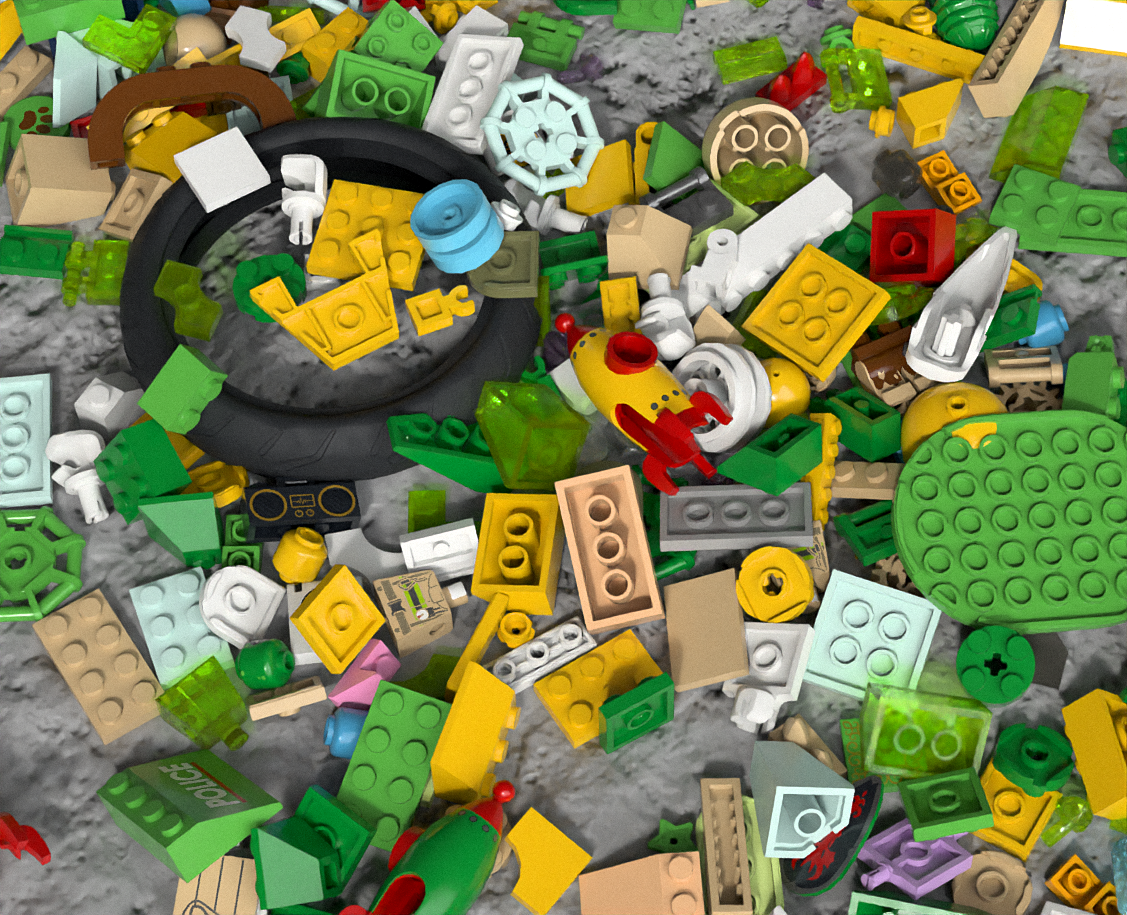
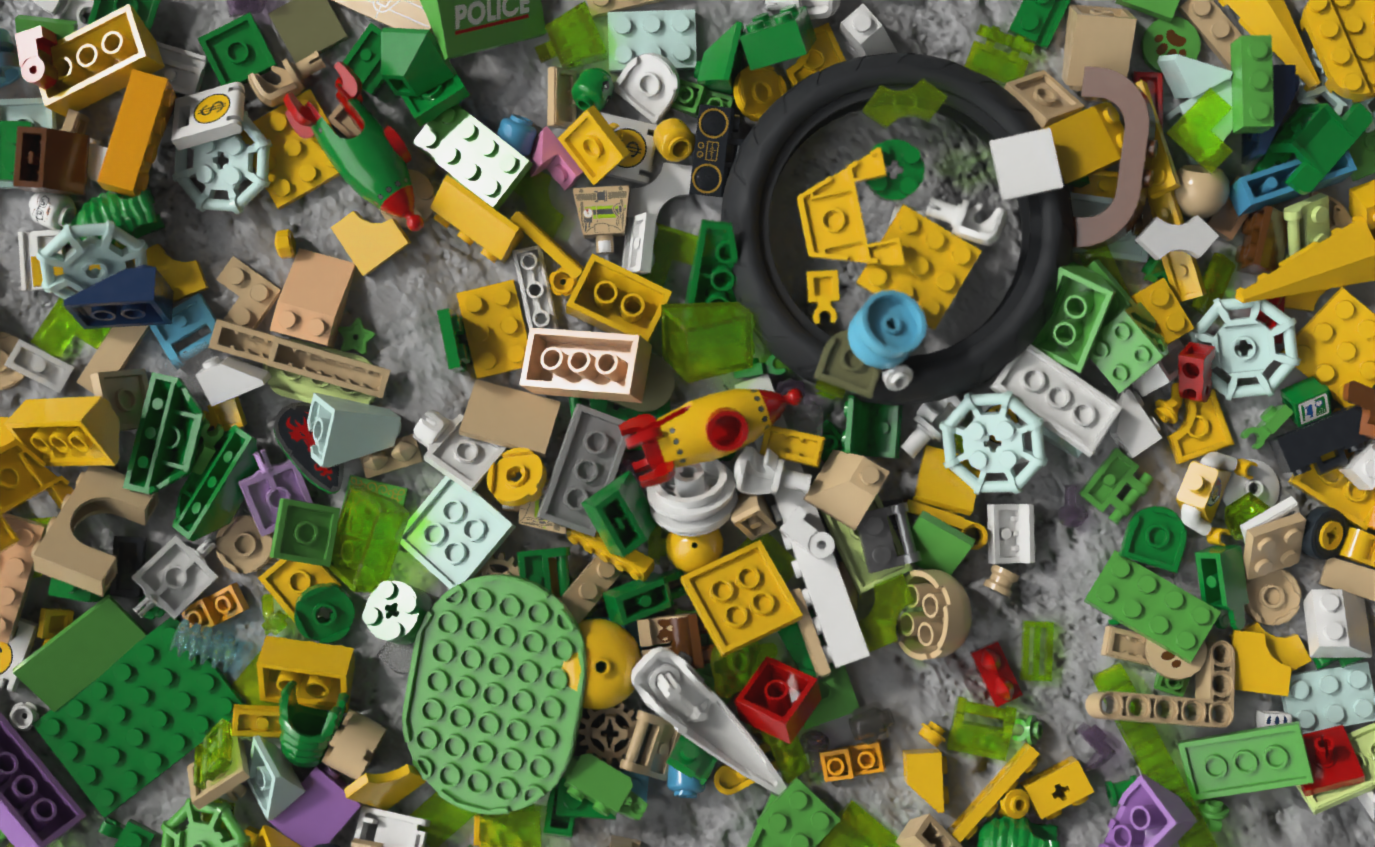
camera: 105 degrees right, 30 degrees up
(183, 389) = (817, 77): bright green brick -> none
(629, 106) = (1010, 533): none -> white bracket
(688, 106) = (1001, 580): none -> tan wheel
(839, 234) = (811, 638): none -> tan tile

